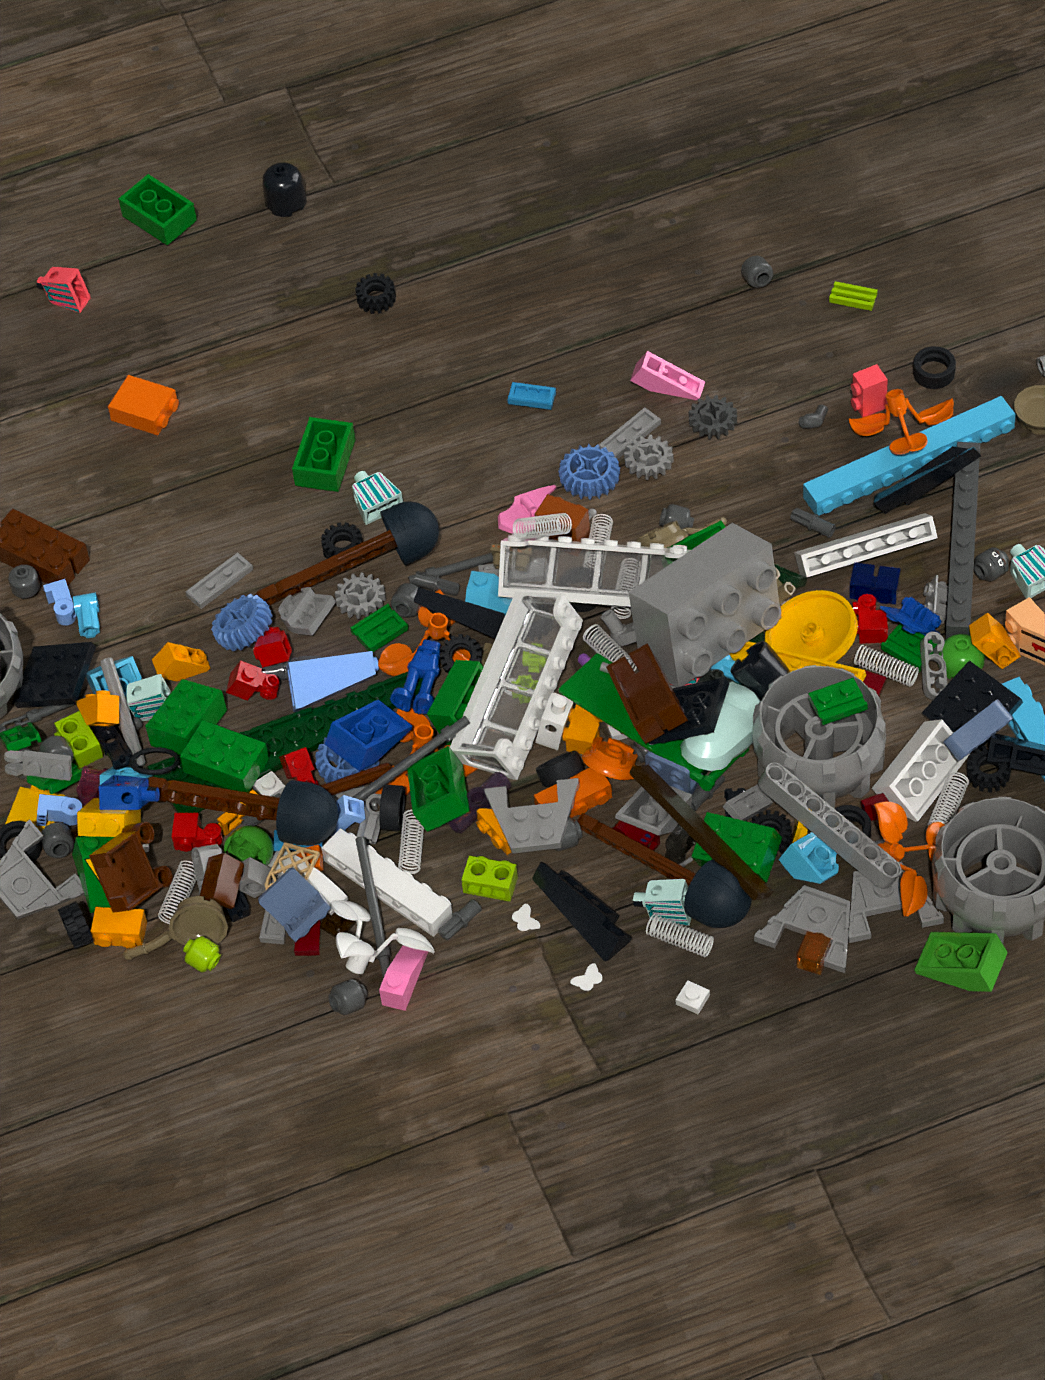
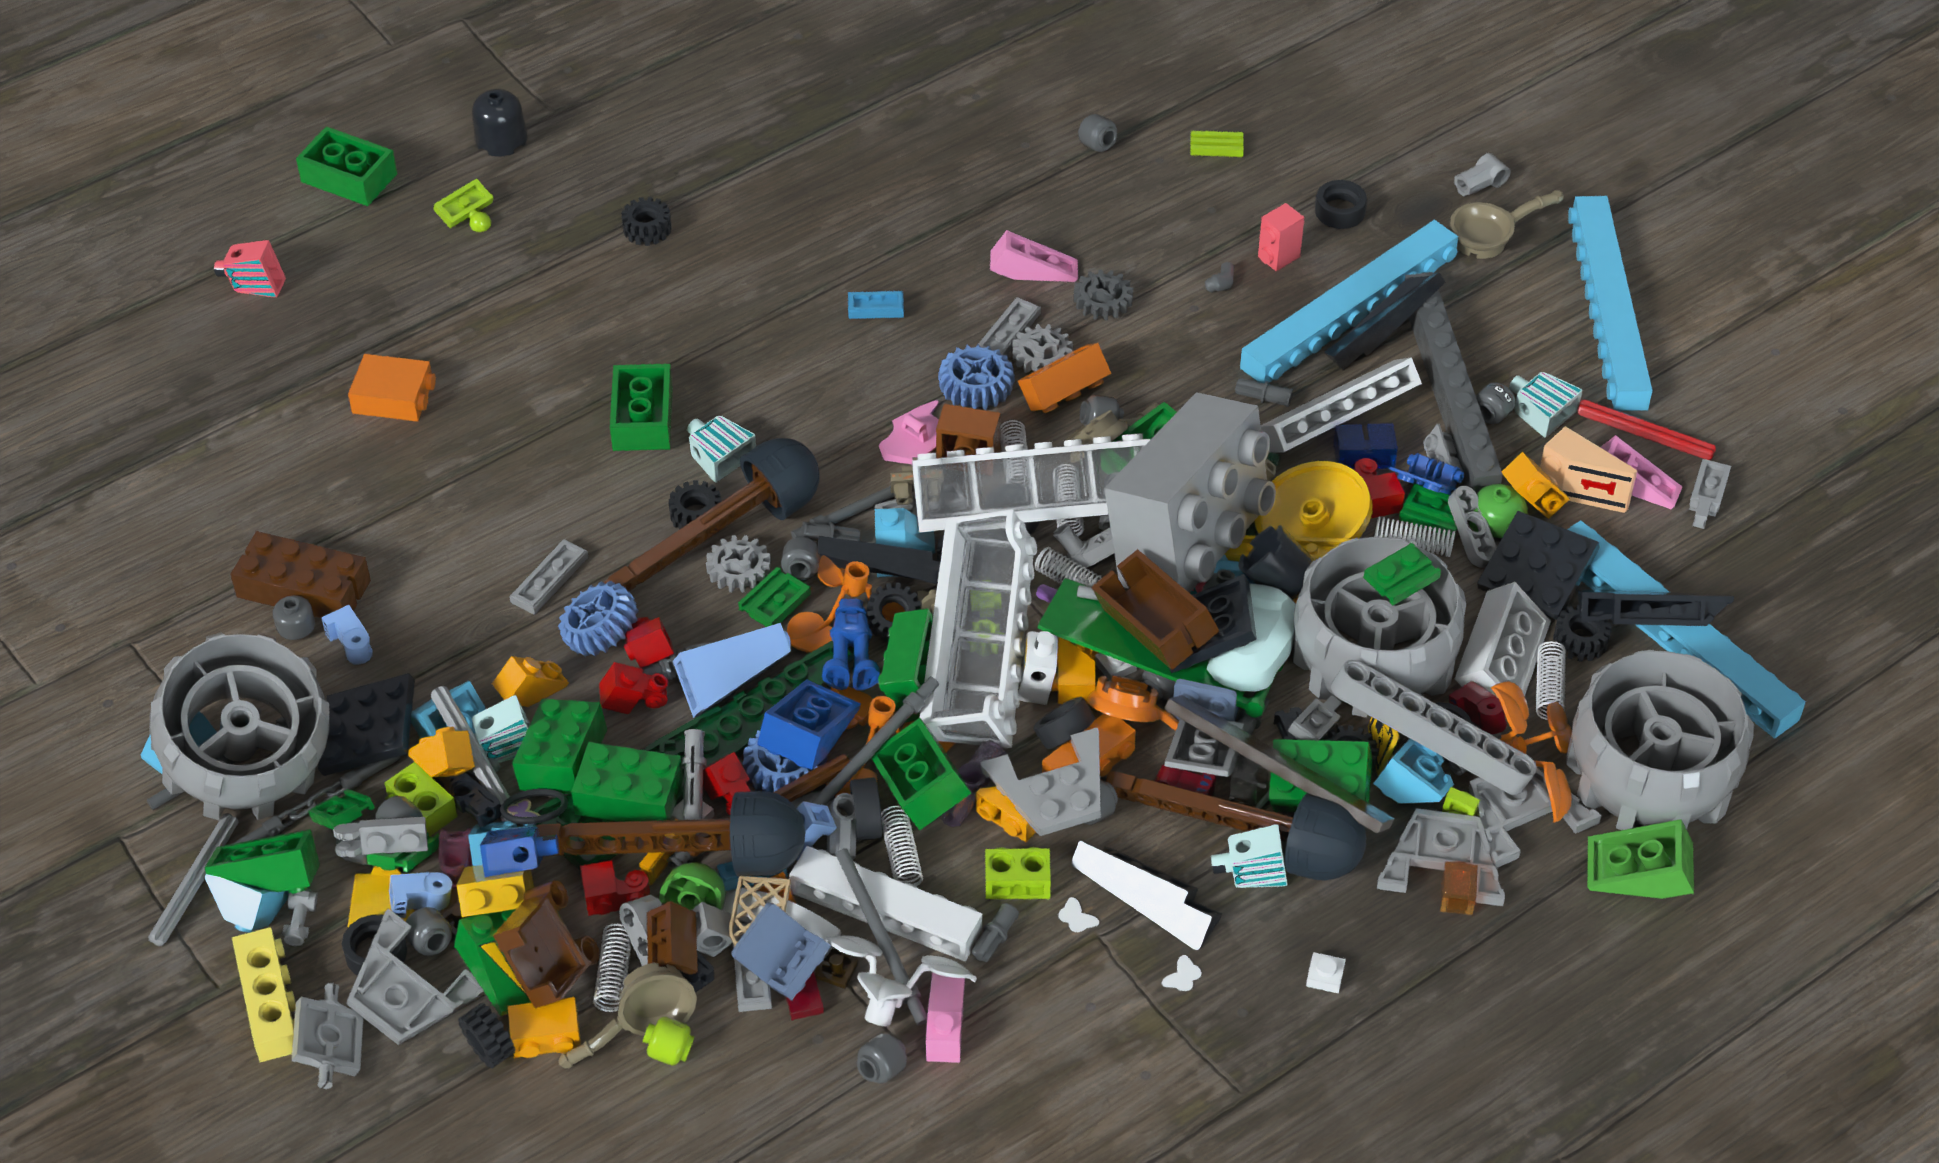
camera: 20 degrees left, 5 degrees down
(87, 611) = (387, 641): medium azure piece -> none
(145, 762) = (521, 809): none -> medium lavender sticker
(241, 256) = (466, 204): none -> lime plate
(275, 752) = (693, 761): none -> light grey pin
(305, 611) = (673, 593): light grey slope -> none
(541, 518) = (943, 431): white piece -> none
(653, 927) = (1254, 899): white piece -> none
(656, 484) = (1065, 378): none -> orange brick
(839, 887) = (1460, 803): none -> lime plate
(897, 405) = (1326, 244): orange plant -> none
(978, 730) = (1562, 587): sand blue beam -> none

